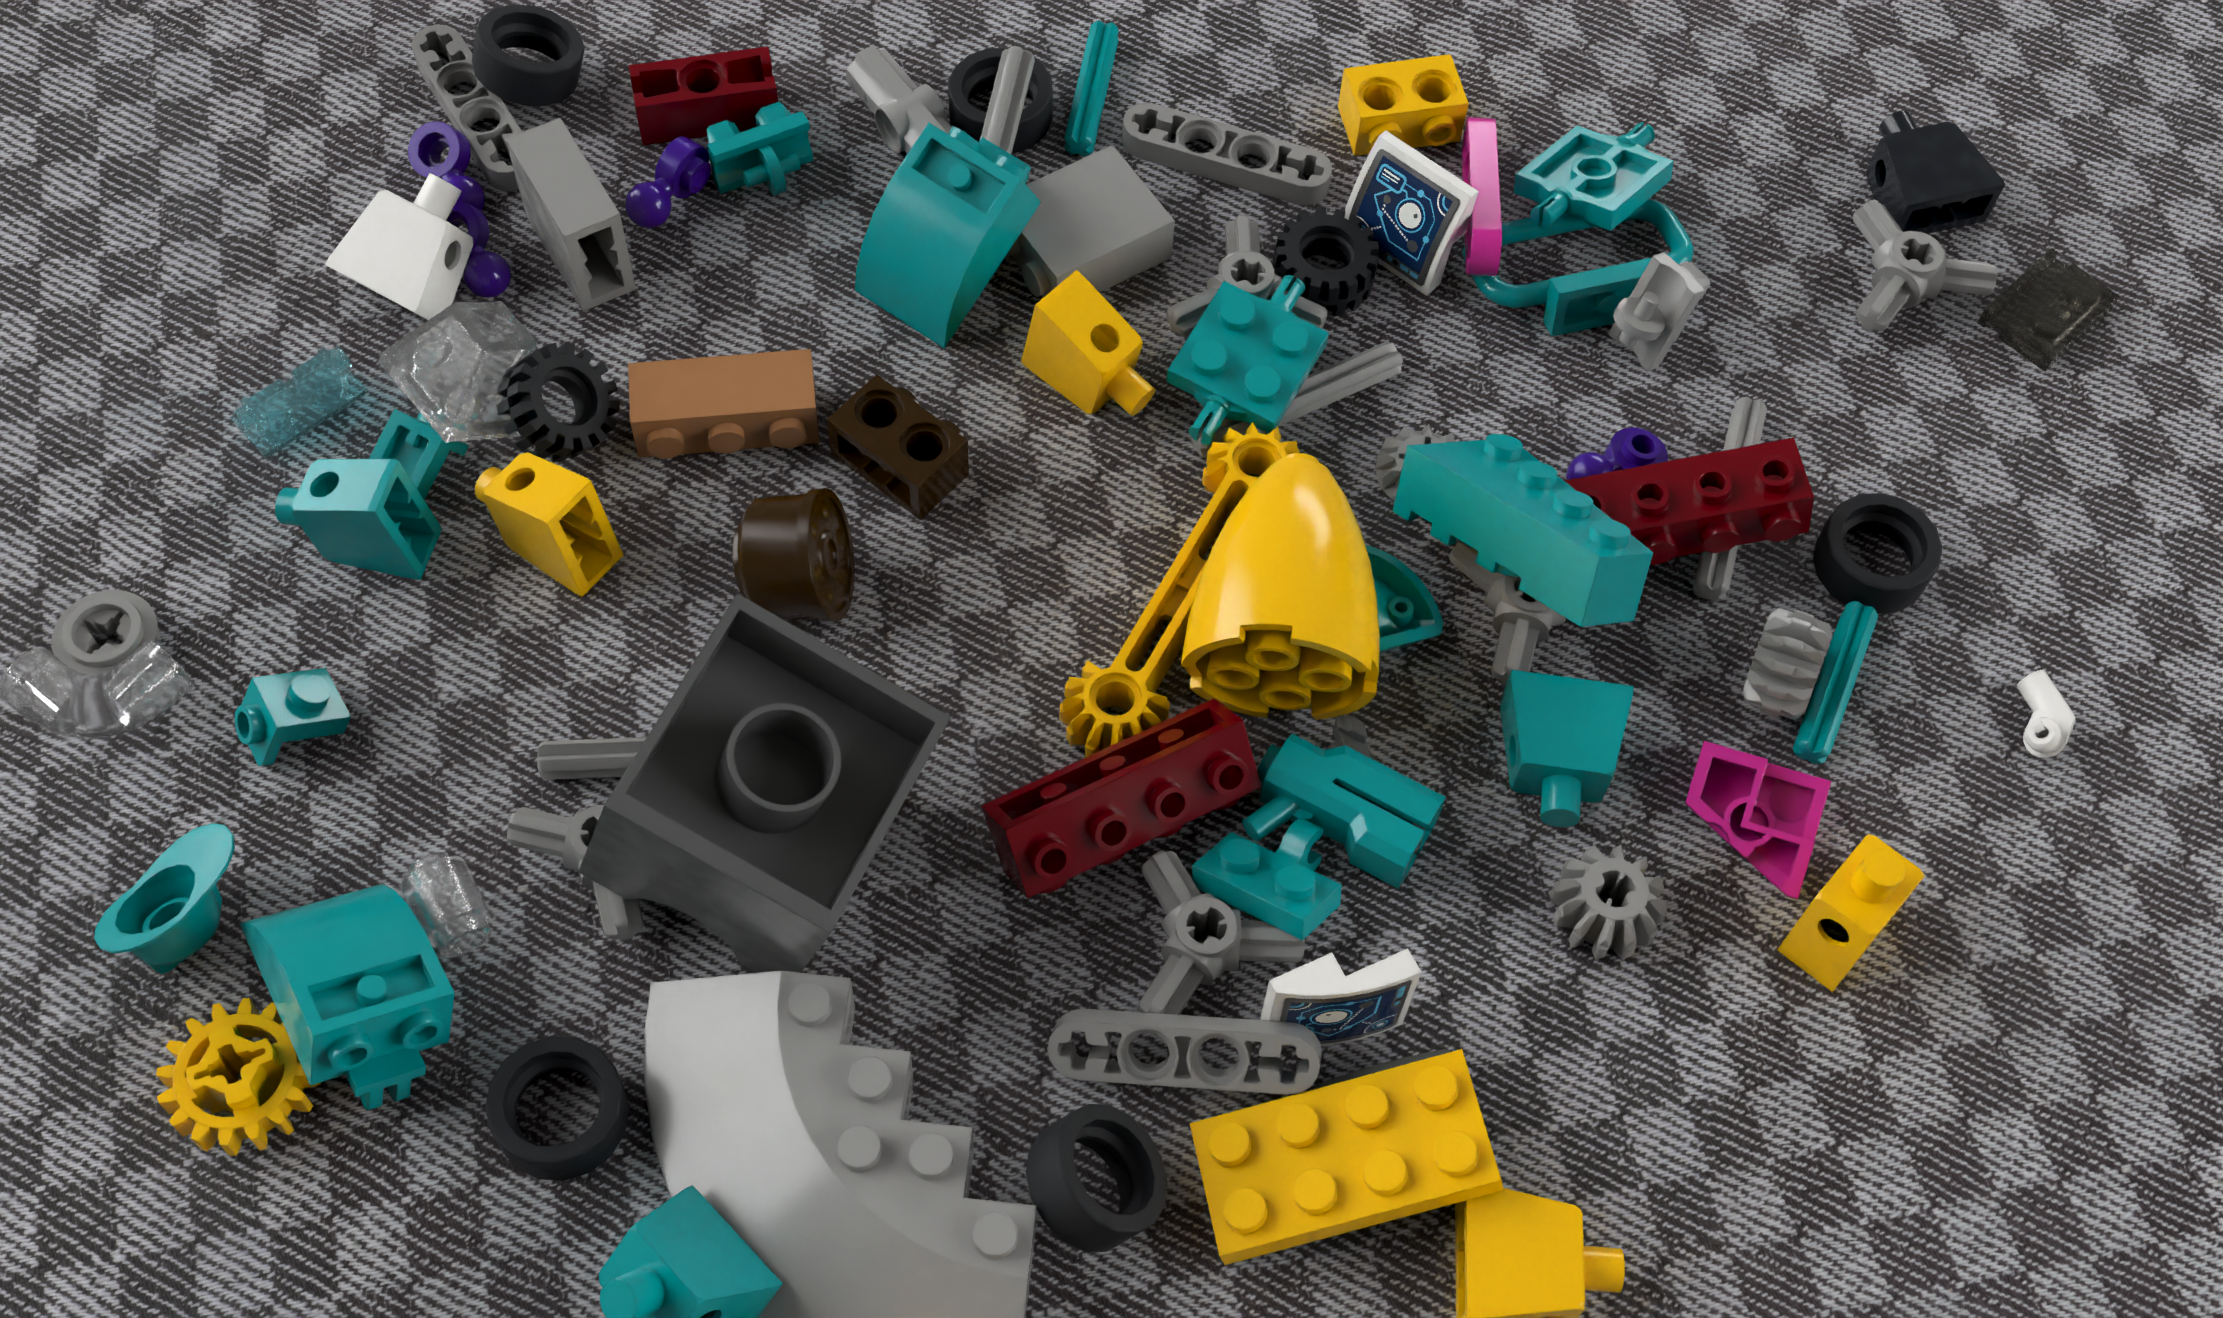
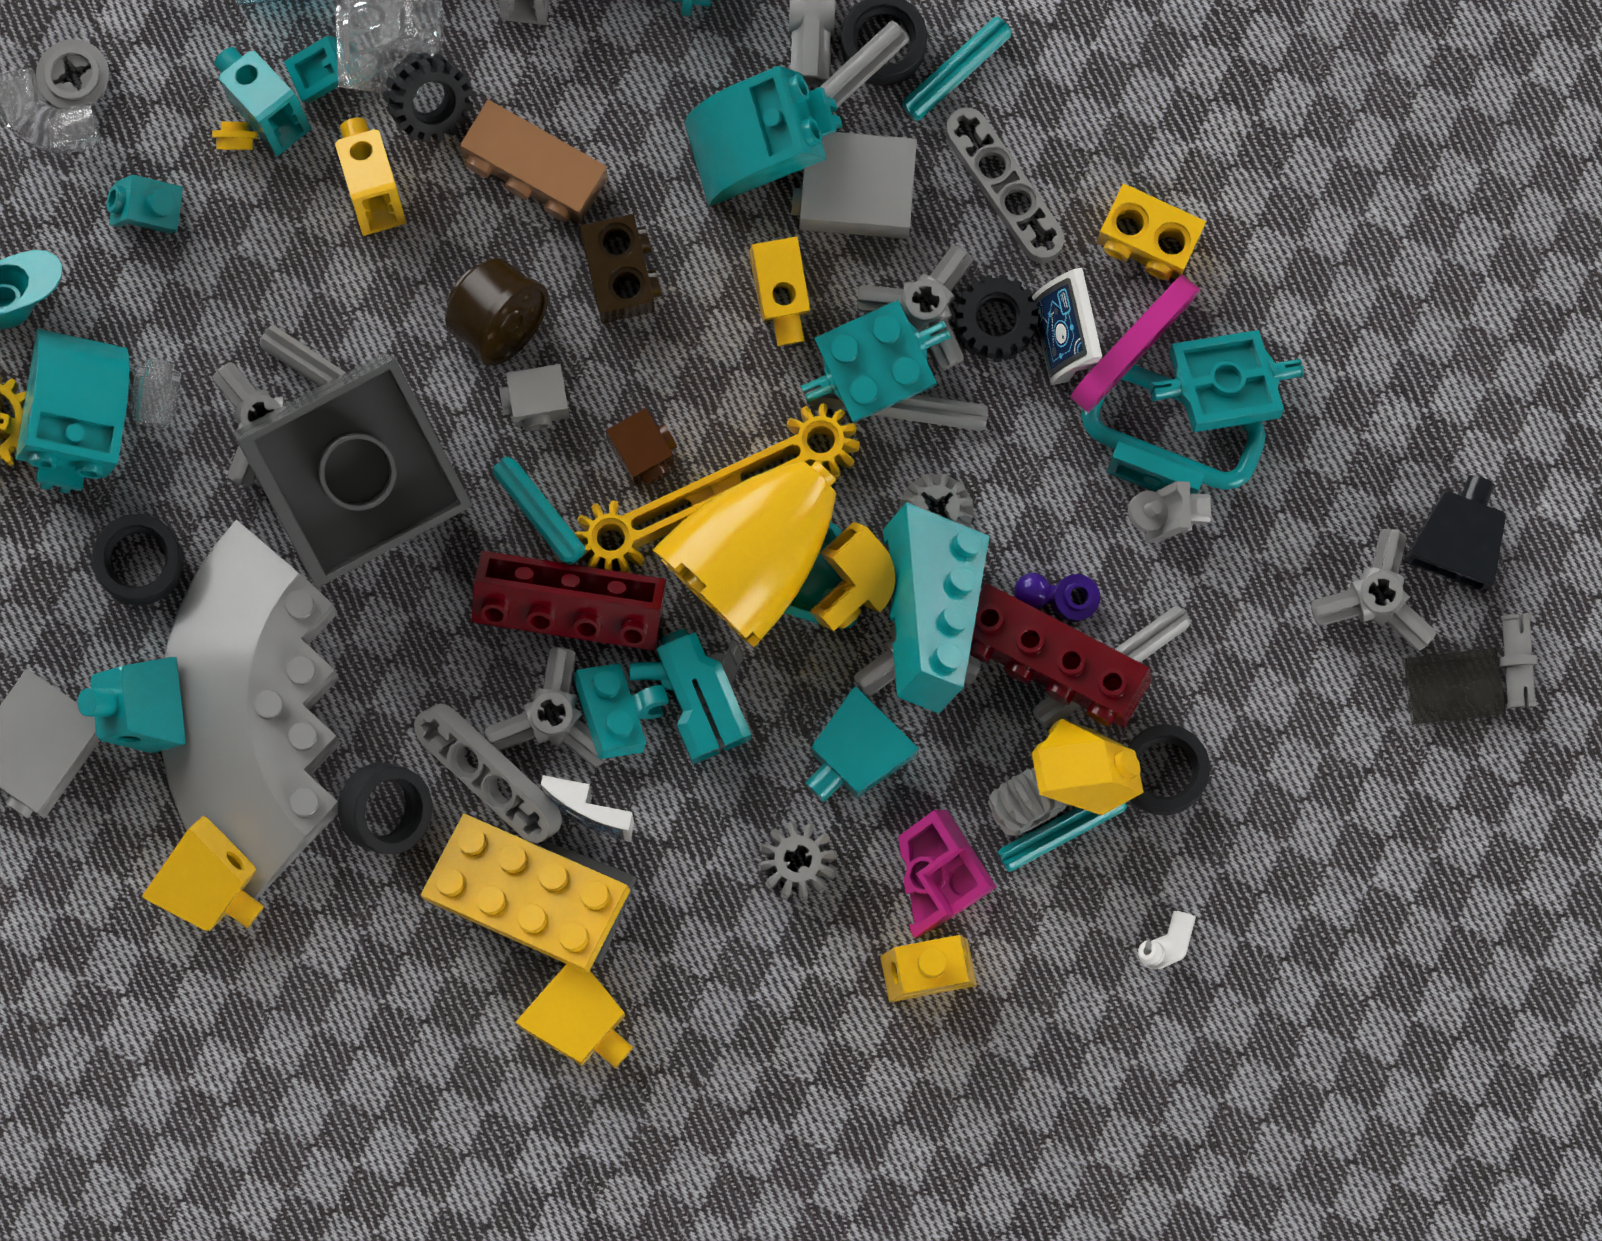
camera: 35 degrees right, 20 degrees up
(354, 579) = (234, 136): none -> yellow plate
(910, 621) = (535, 397): none -> light grey brick
(1021, 728) = (538, 510): none -> teal axle
(1069, 598) = (642, 448): none -> reddish brown brick
(1424, 548) = (866, 577): none -> yellow brick
(1826, 577) = (1086, 768): none -> yellow slope
(2081, 245) = (1518, 661): none -> light grey pin

